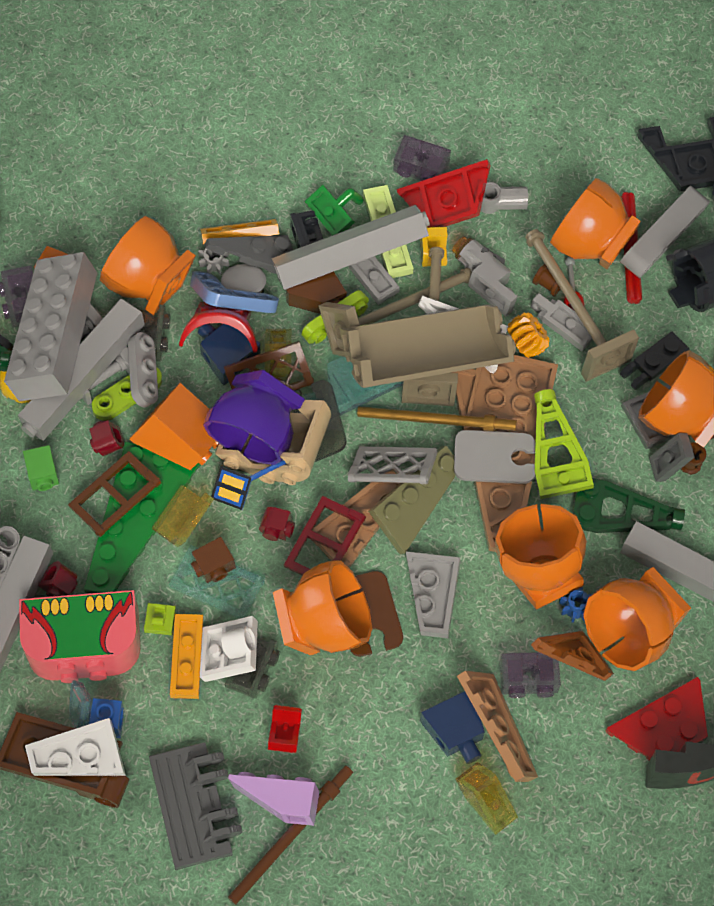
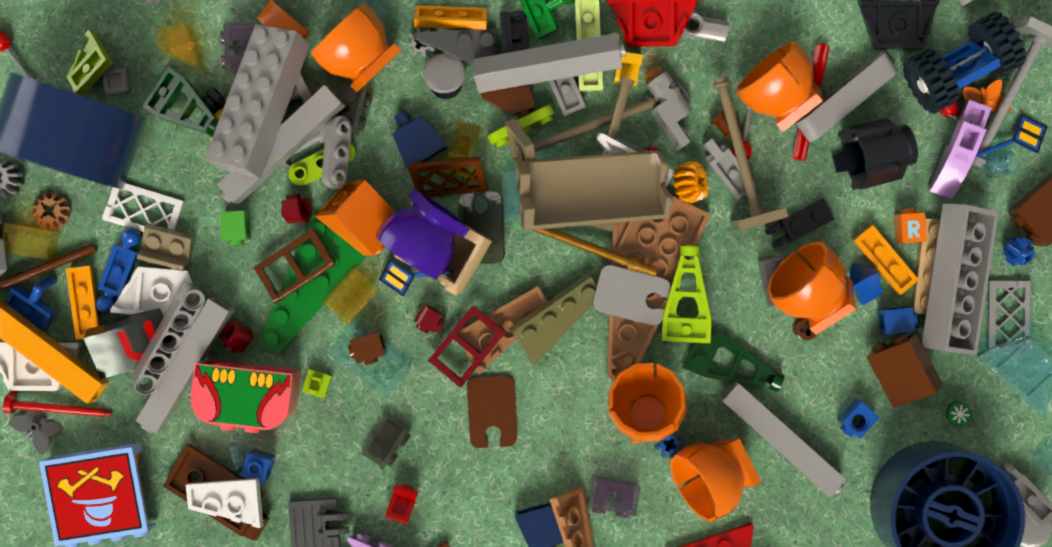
camera: 15 degrees right, 25 degrees up
(186, 656) = (333, 422): light orange plate -> none
(211, 314) = (416, 110): red piece -> none
(215, 294) = (419, 97): medium blue beam -> none
(228, 649) = (367, 427): white plate -> none
(313, 618) = (452, 419): orange plate -> none
(382, 453) = (538, 269): light grey window -> none
(434, 591) = (551, 405): light grey wing -> none
(575, 651) = (653, 490): dark orange wing -> none
(671, 457) = (786, 329): dark grey plate -> none

